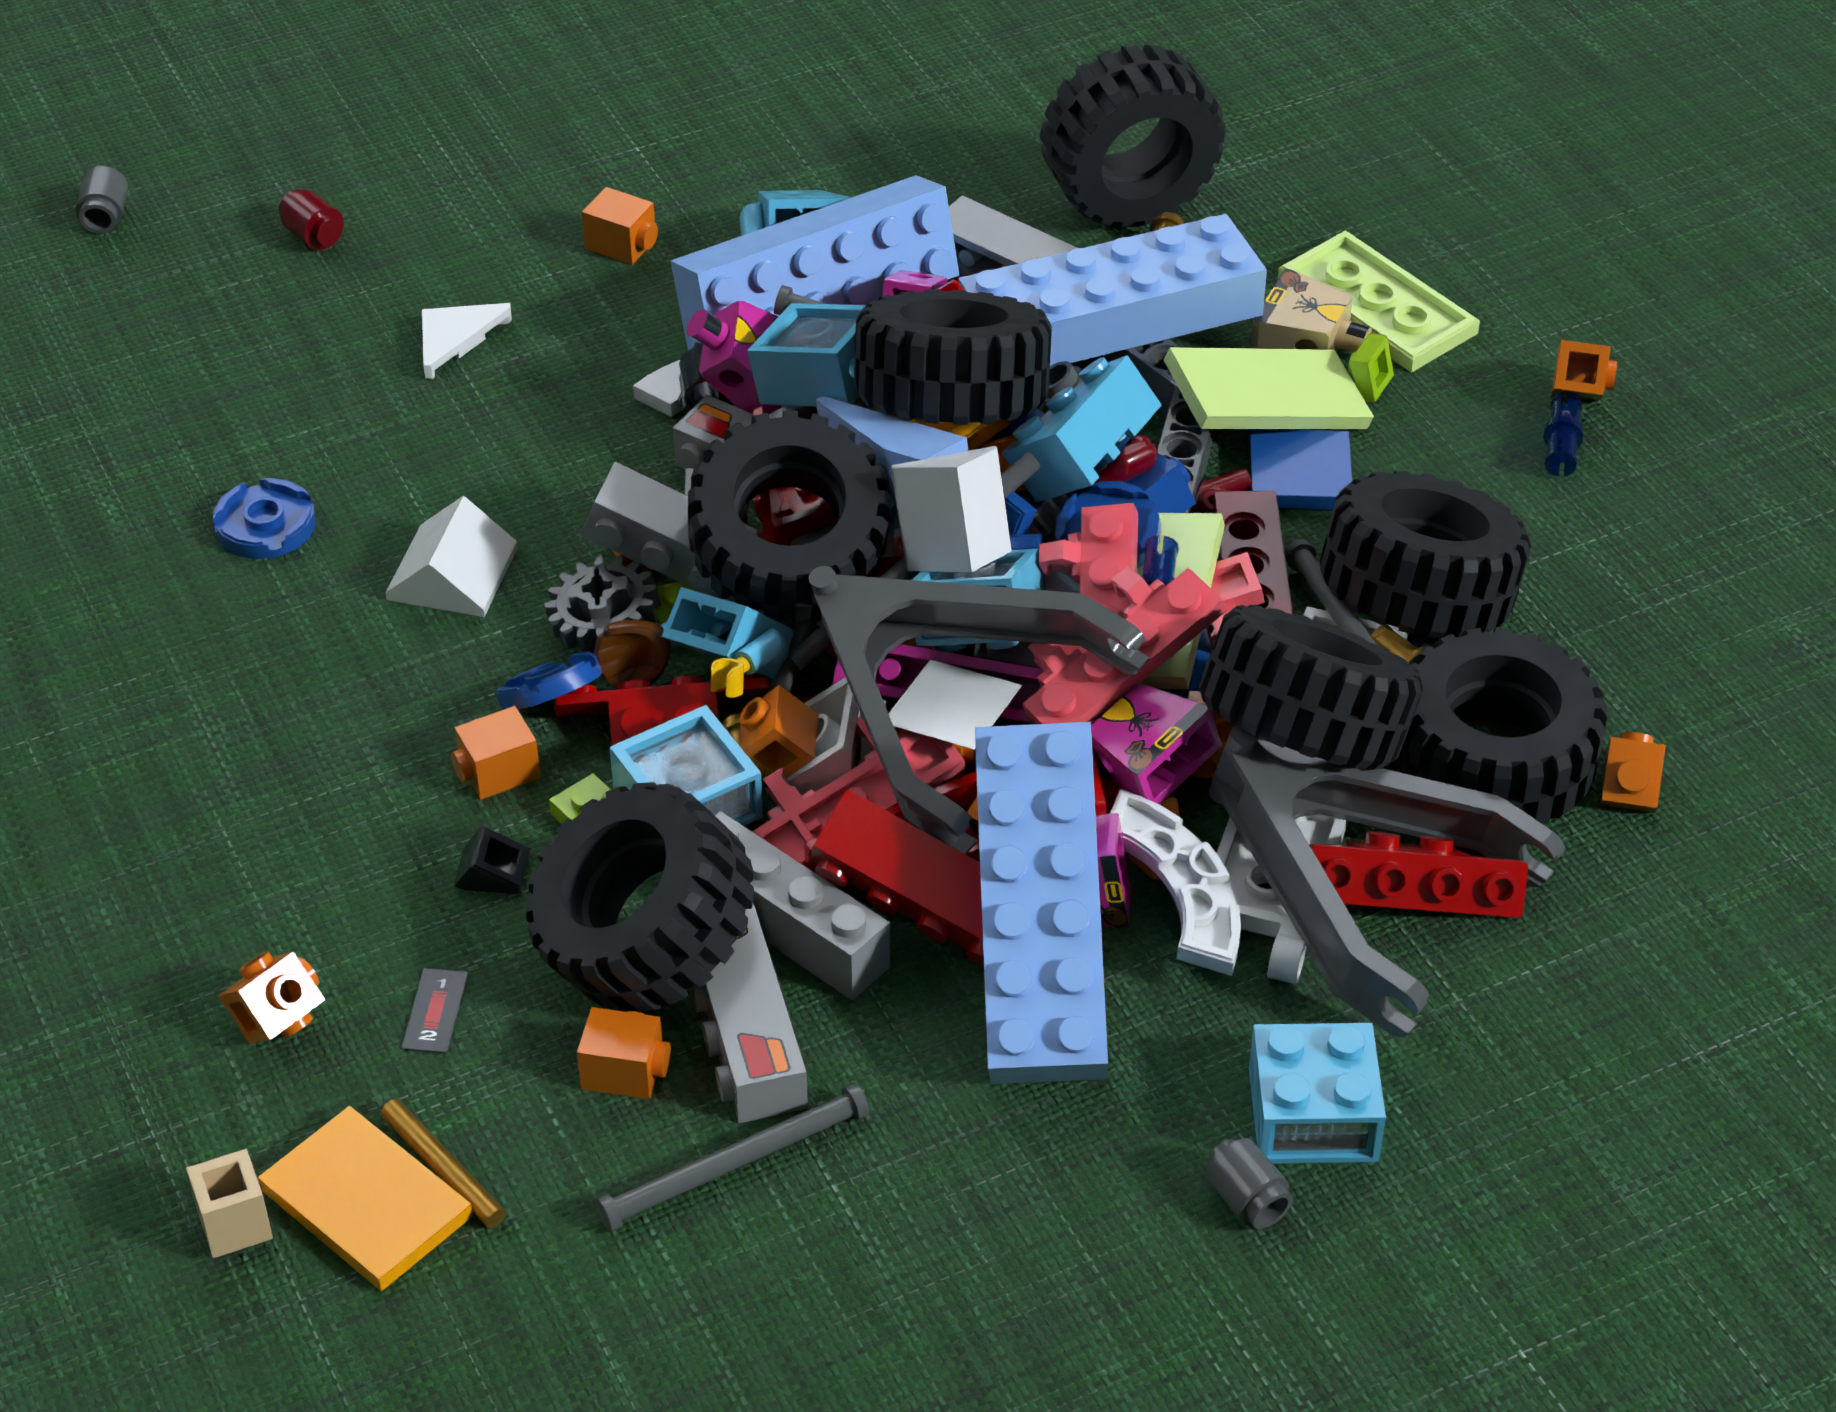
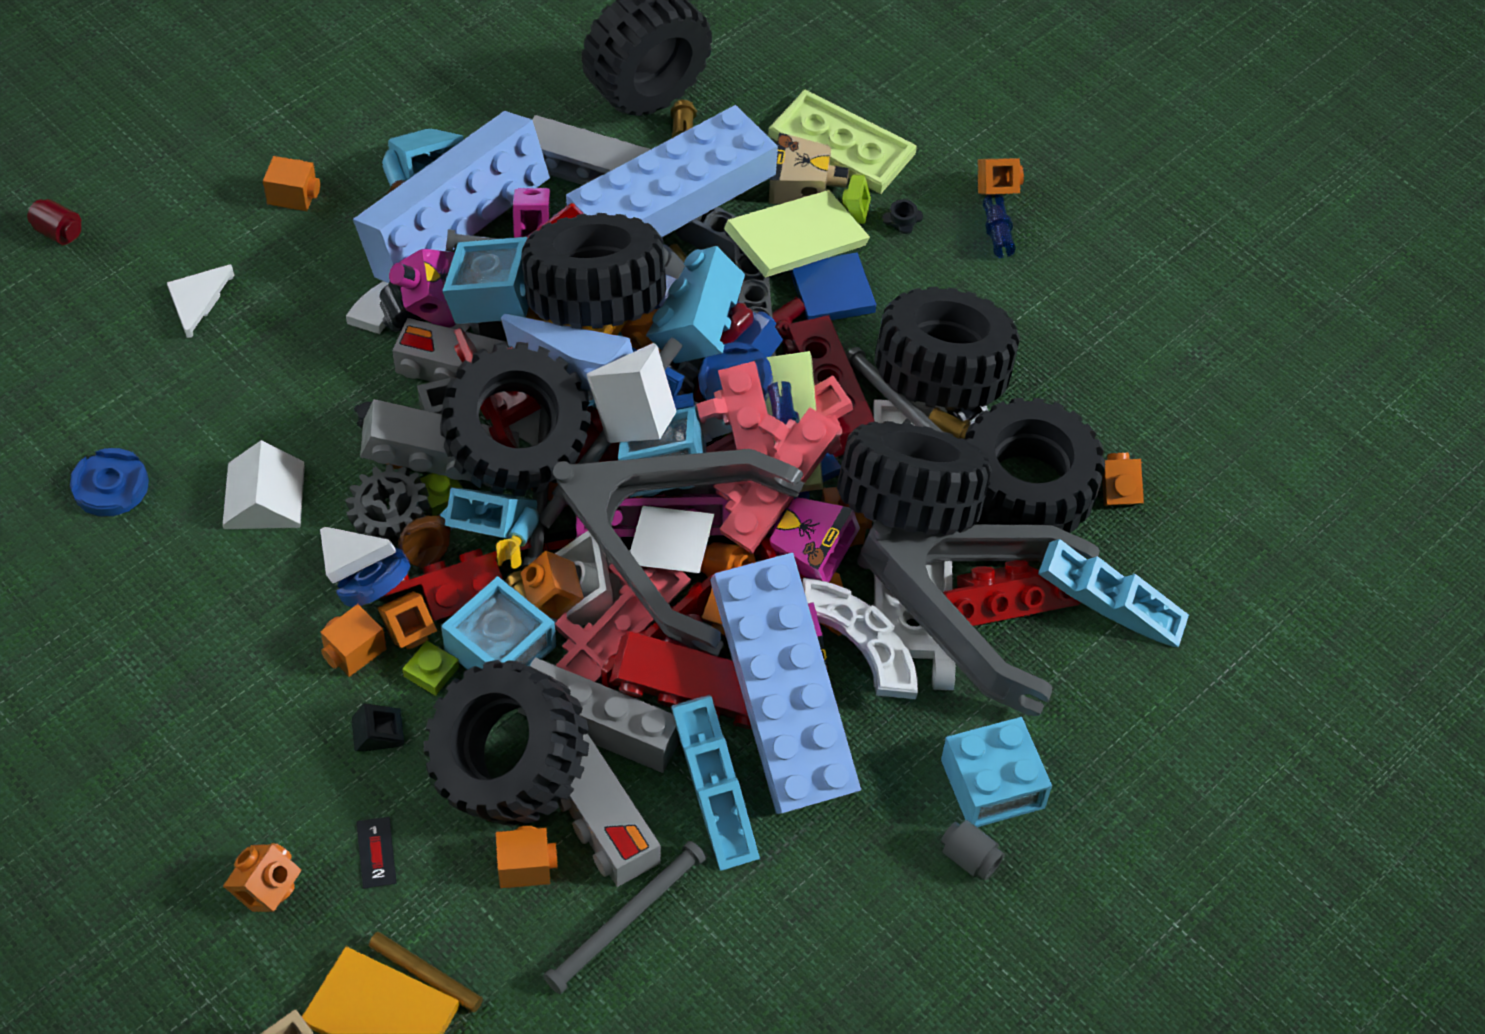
camera: 20 degrees left, 10 degrees up
(532, 647) = (351, 552): none -> white tile
(574, 741) = (407, 620): none -> orange brick
(911, 1016) = (715, 782): none -> medium azure slope
(1430, 400) = (903, 216): none -> black plate
(1577, 915) = (1117, 597): none -> medium azure slope

